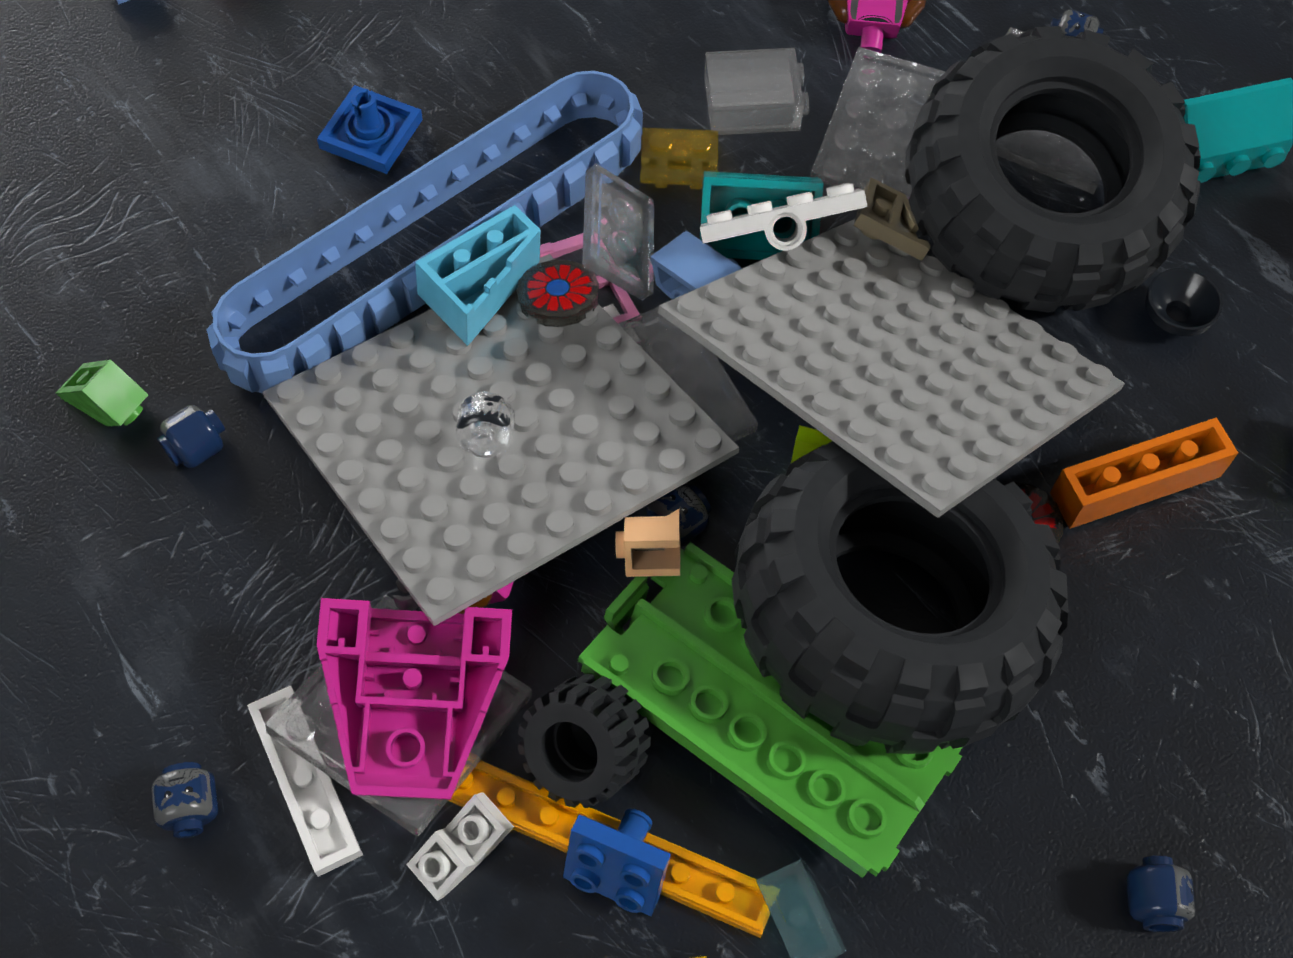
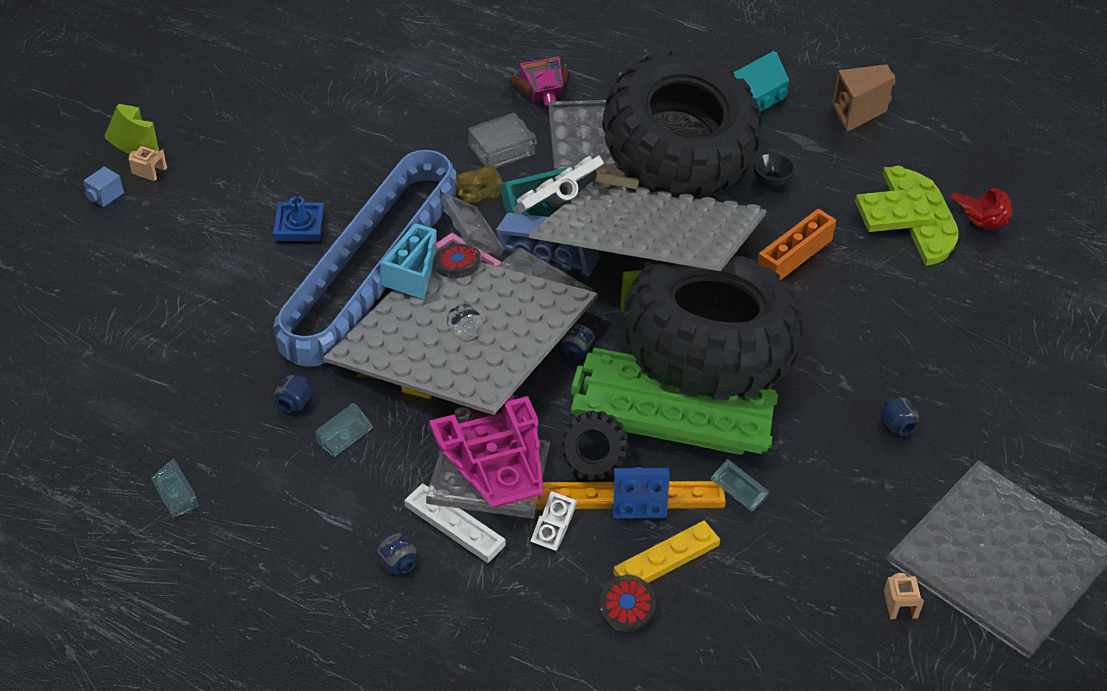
camera: 25 degrees left, 15 degrees down
(104, 393) = (228, 390): bright green slope -> none
(233, 531) = (343, 430): none -> clear light blue slope
(650, 545) = (576, 350): light nougat window -> none

